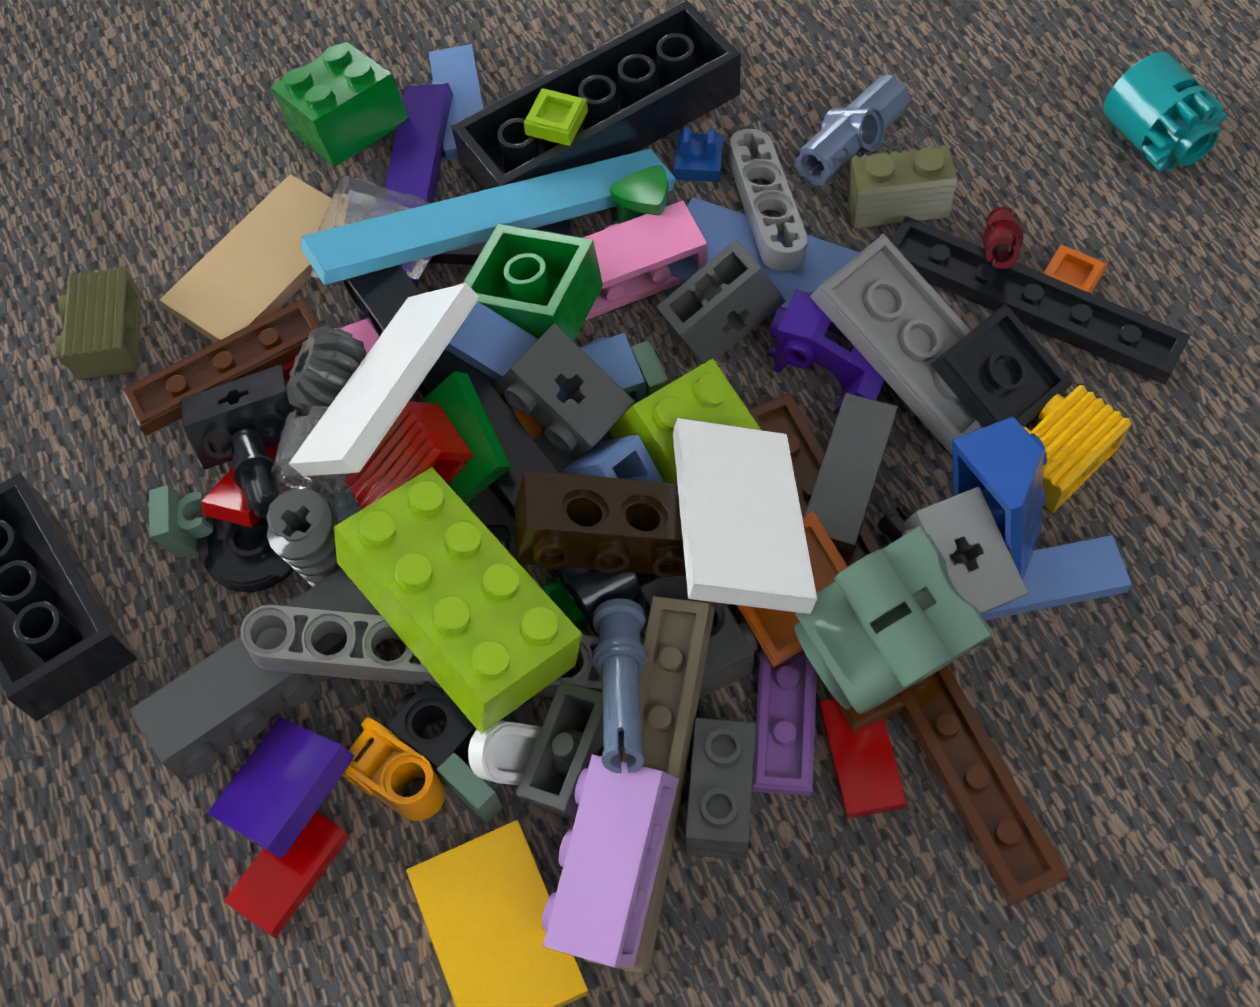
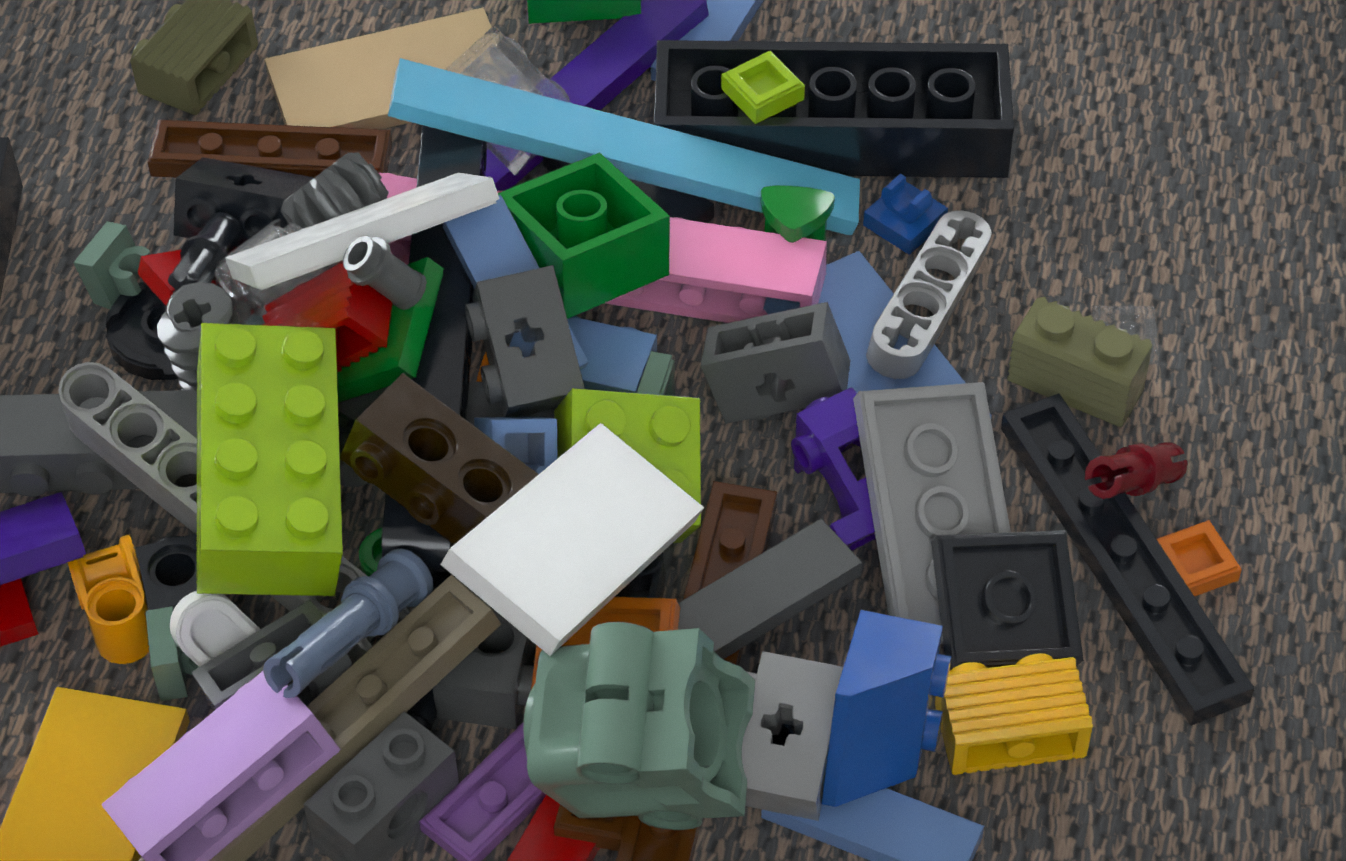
camera: 30 degrees right, 10 degrees down
(431, 401) = (373, 264): none -> dark grey pin
(852, 130) = (1115, 274): sand blue piece -> none

